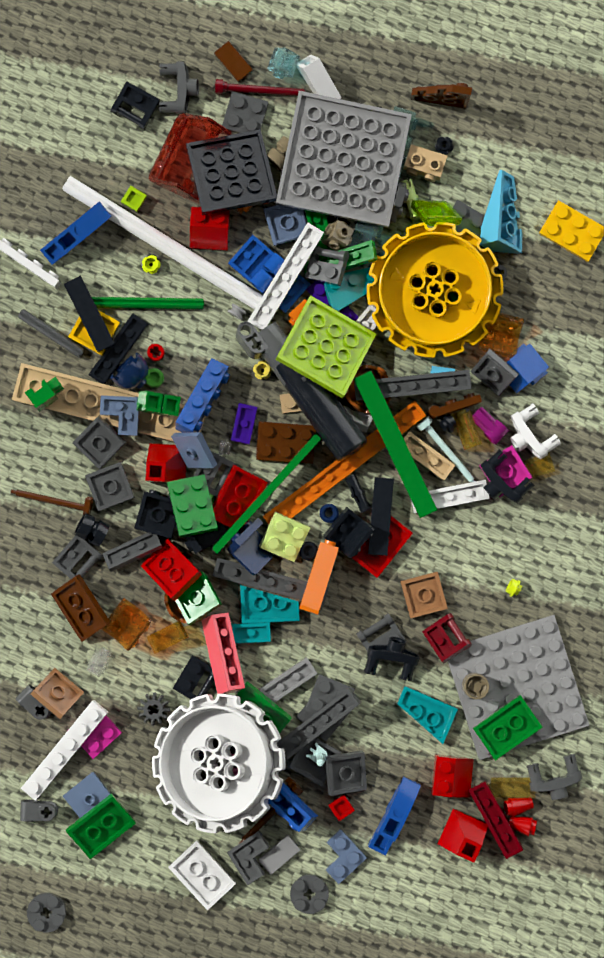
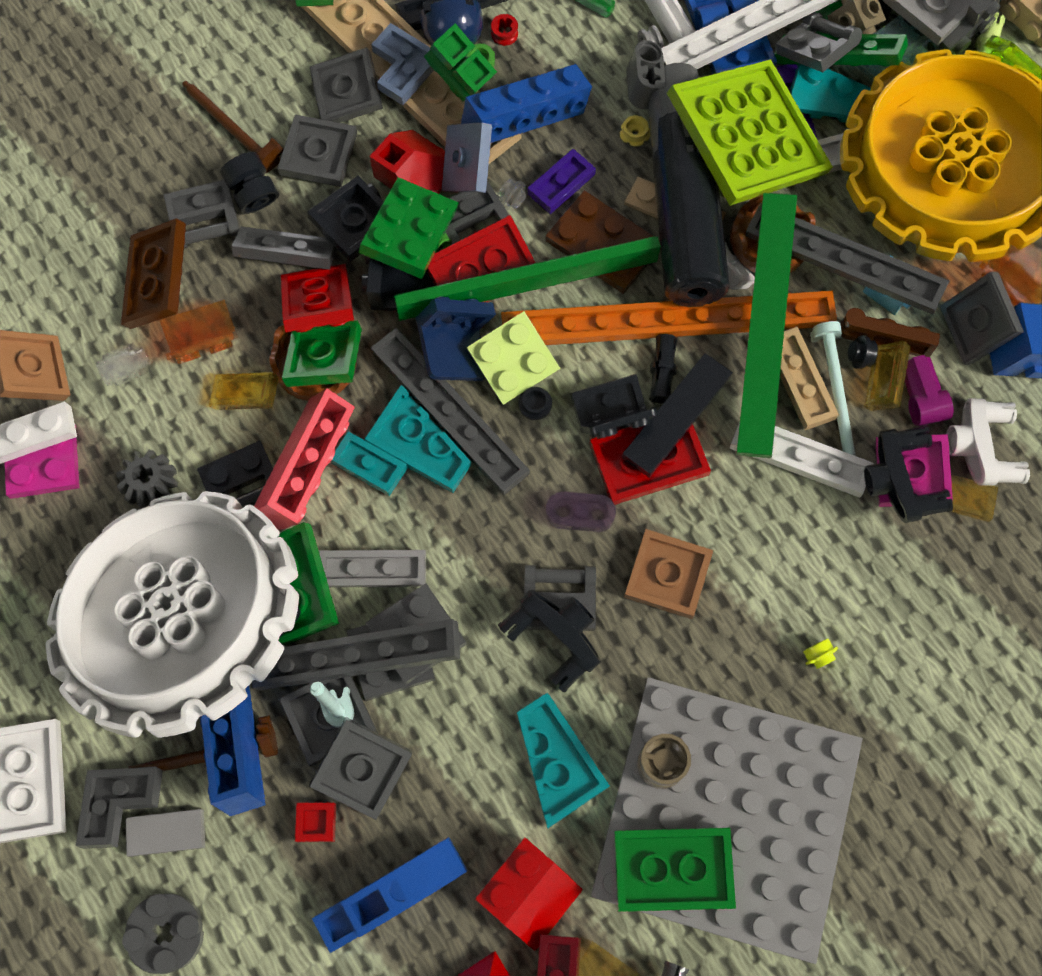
camera: 30 degrees right, 15 degrees down
(319, 577) = (521, 439): orange slope -> none
(324, 508) = (604, 361): dark blue plate -> none
(349, 856) = (272, 915): sand blue plate -> none
(365, 592) = (580, 508): none -> clear purple plate
(440, 640) = (651, 664): dark red plate -> none

